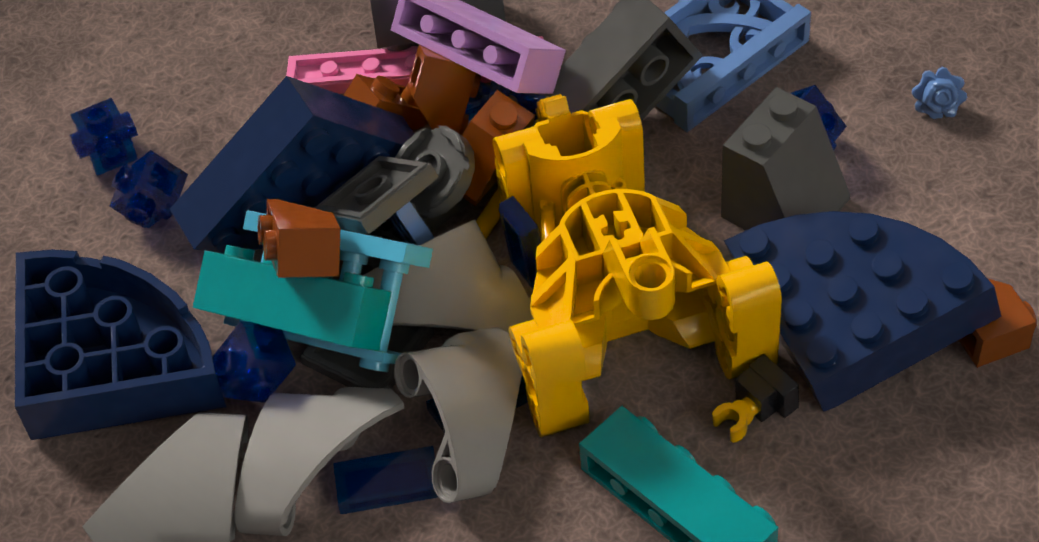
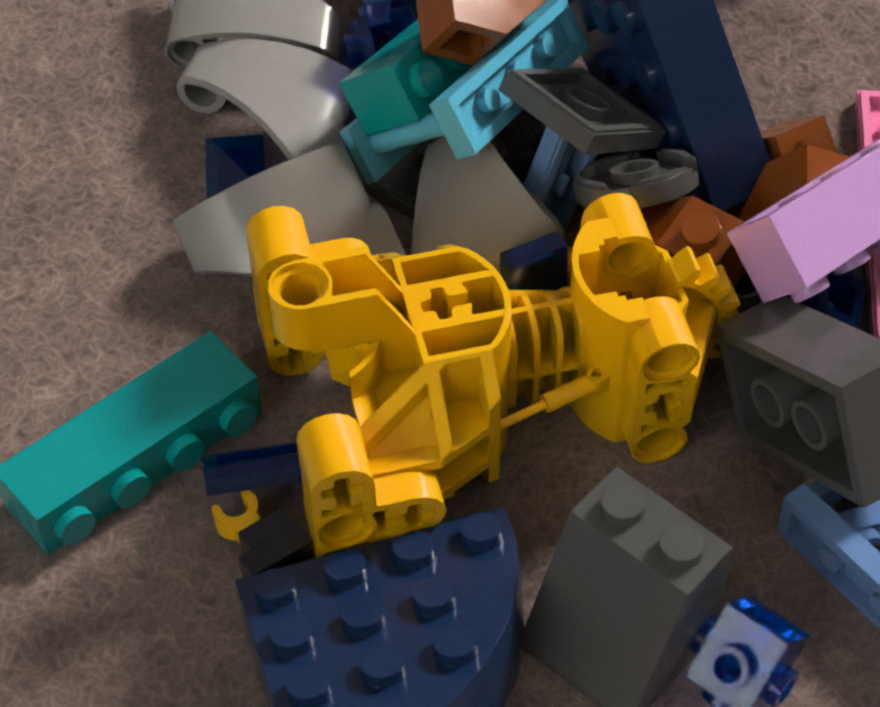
camera: 90 degrees right, 0 degrees up
(686, 403) = (251, 468): none -> clear blue tile

